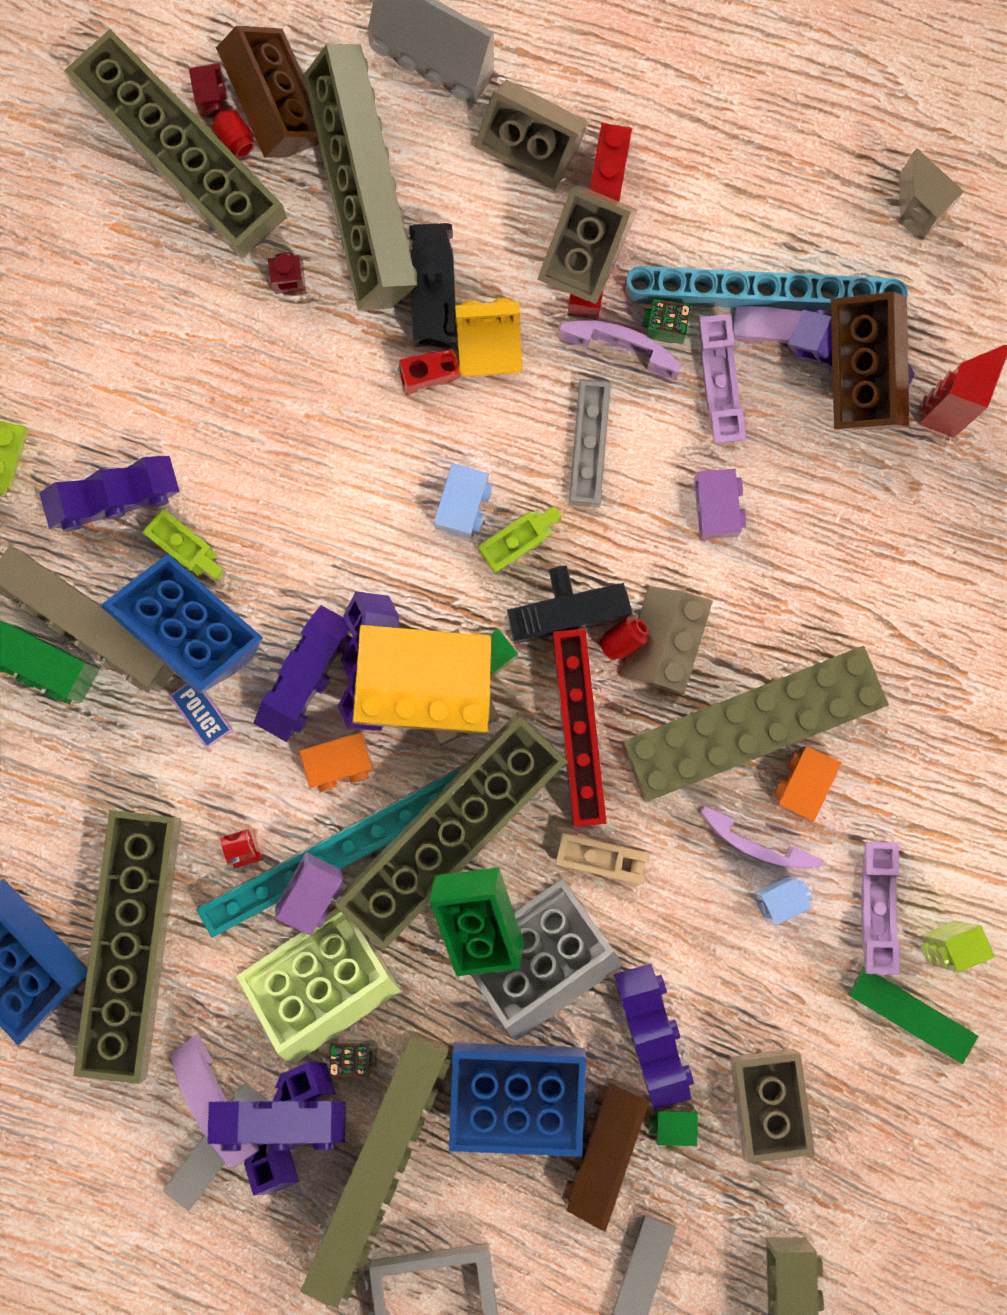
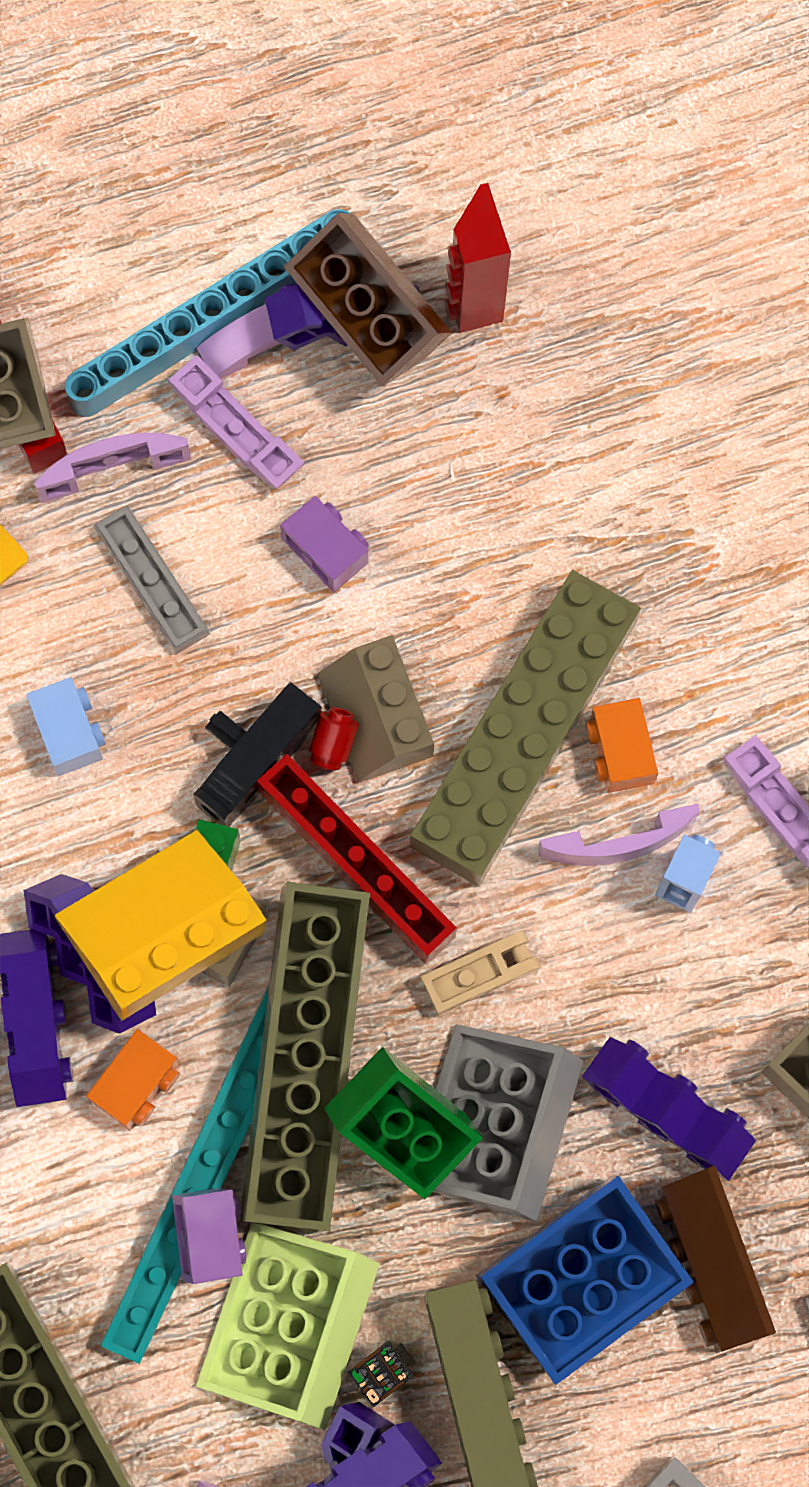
camera: 40 degrees left, 10 degrees down
(241, 848) = (101, 1245): red leg -> none
(518, 538) = (151, 722): lime hinge -> none
(666, 321) = (138, 407): brick -> none
(674, 1126) = (761, 1182): green brick -> none
(925, 194) = (297, 116): dark tan slope -> none

